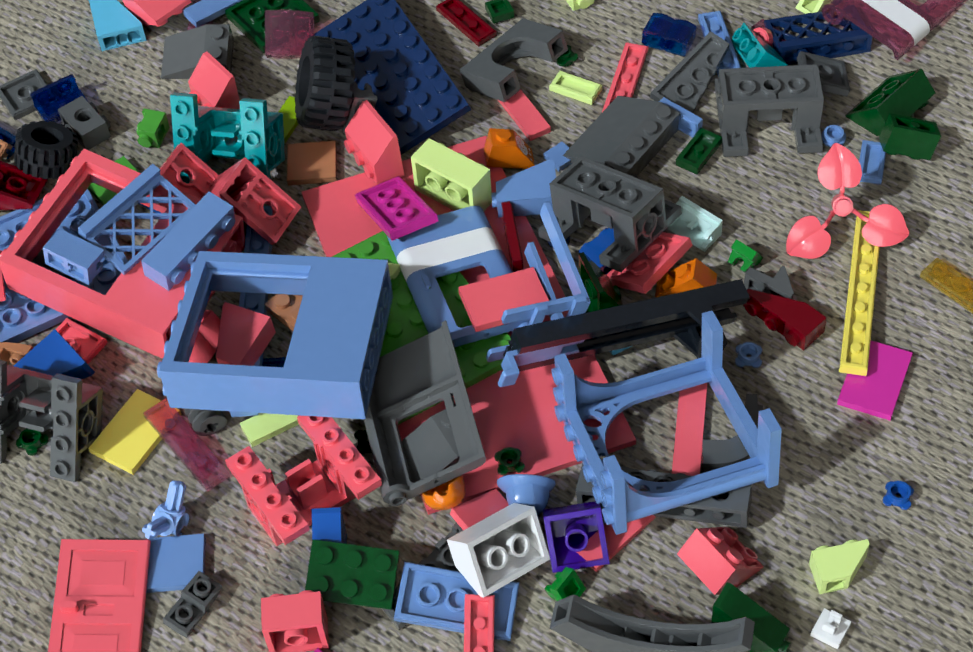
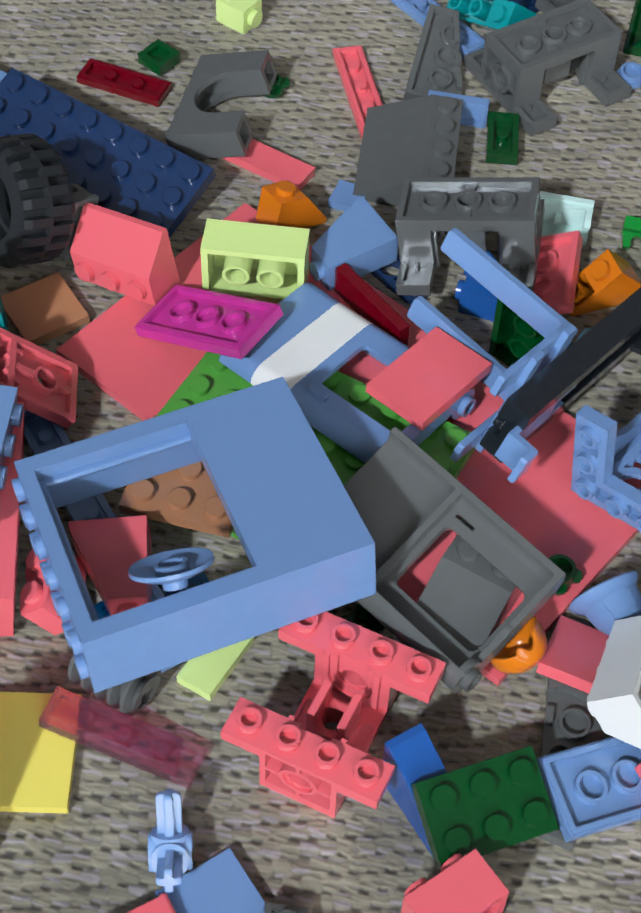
camera: 35 degrees left, 0 degrees up
(231, 347) = (171, 567): none -> medium blue dish
(575, 87) = (310, 115): yellowish green tile -> none
(669, 34) = (377, 24): clear blue brick -> none

